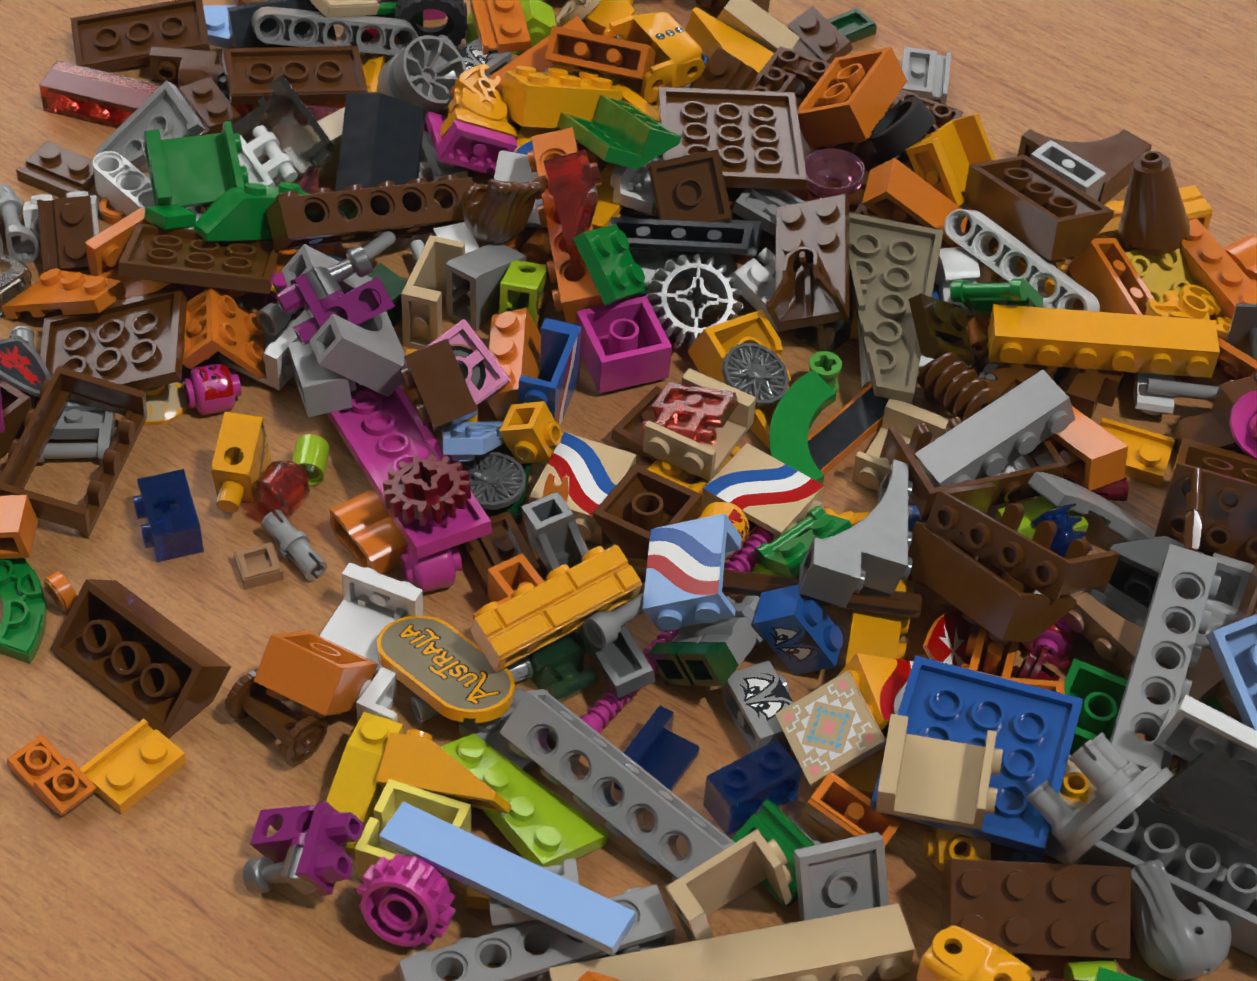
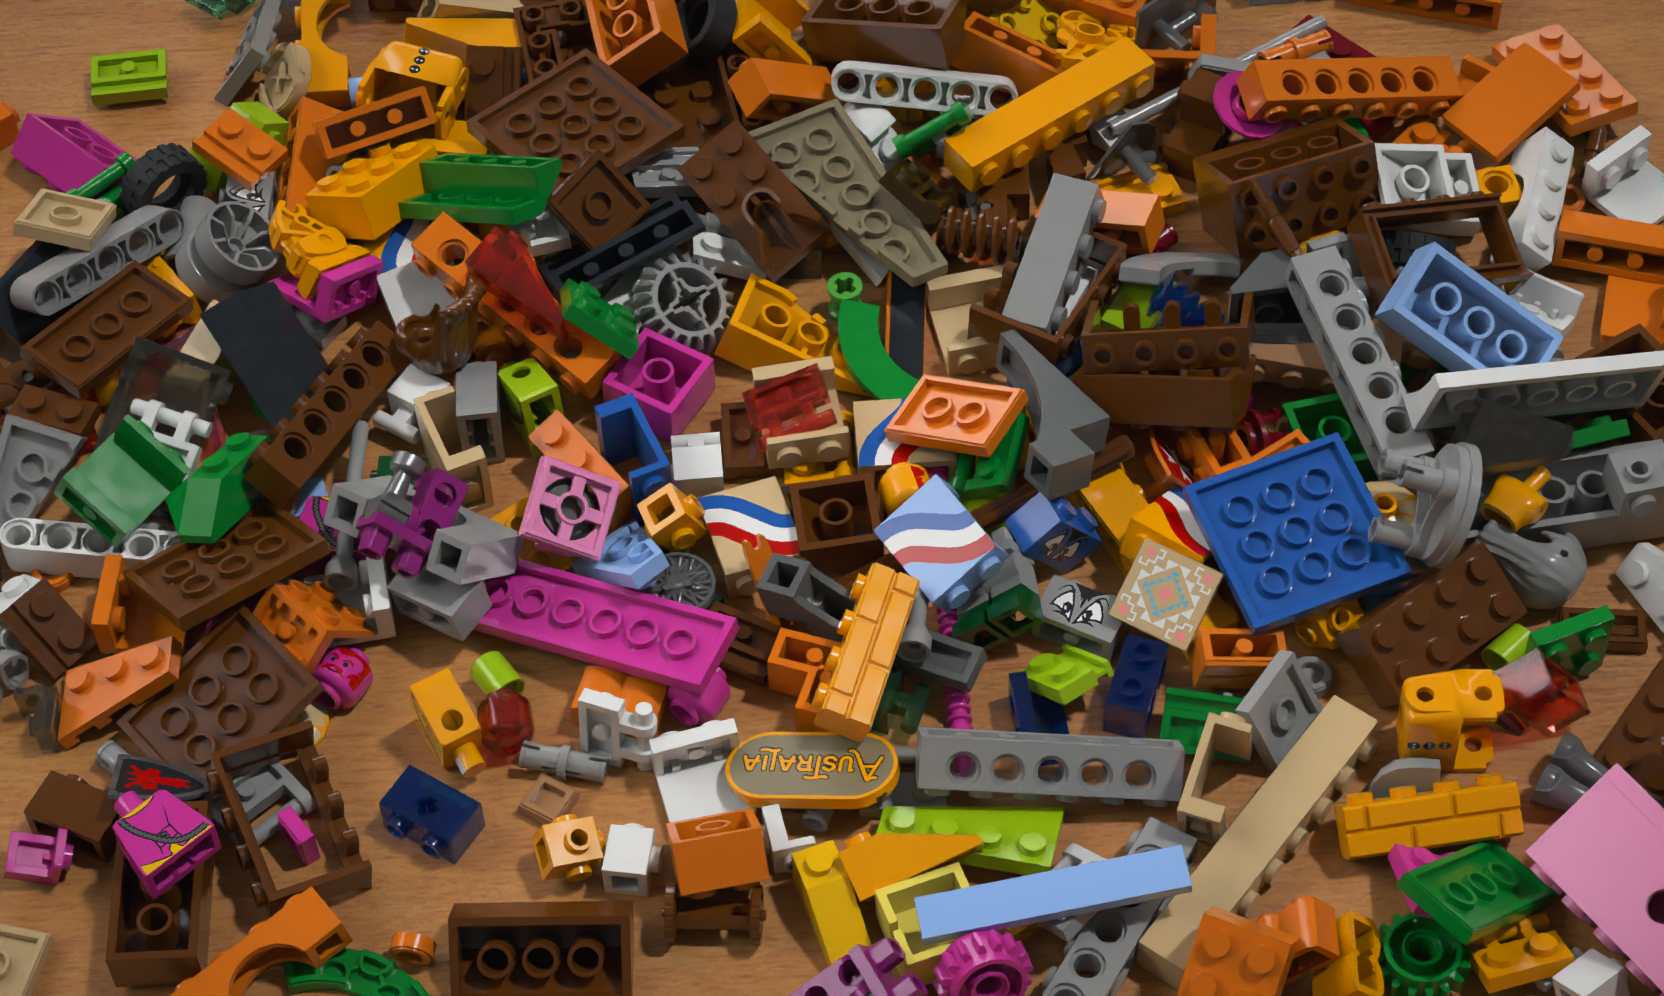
camera: 35 degrees left, 5 degrees up
(73, 467) = (298, 836): none -> dark pink tile
(170, 216) = (147, 544): green tile -> none
(228, 600) = (568, 848): none -> light orange brick
(252, 634) = (631, 859): none -> white brick
(337, 539) = (606, 725): none -> white plate
(427, 489) = (661, 629): dark red gear -> none
(439, 386) = (576, 531): reddish brown brick -> none
(594, 413) = (697, 463): none -> white brick
(702, 736) = (1067, 674): none -> lime plate
(756, 372) = (802, 334): dark grey wheel -> none
(803, 495) = (956, 415): none -> orange tile
(833, 167) = (687, 94): clear pink piece -> none
(906, 883) = (1317, 673): none -> light grey tile
(937, 777) = (1293, 571): tan panel -> none
(1148, 406) = (1130, 151): none -> dark grey shield
(1195, 862) = (1516, 502): none -> light orange piece

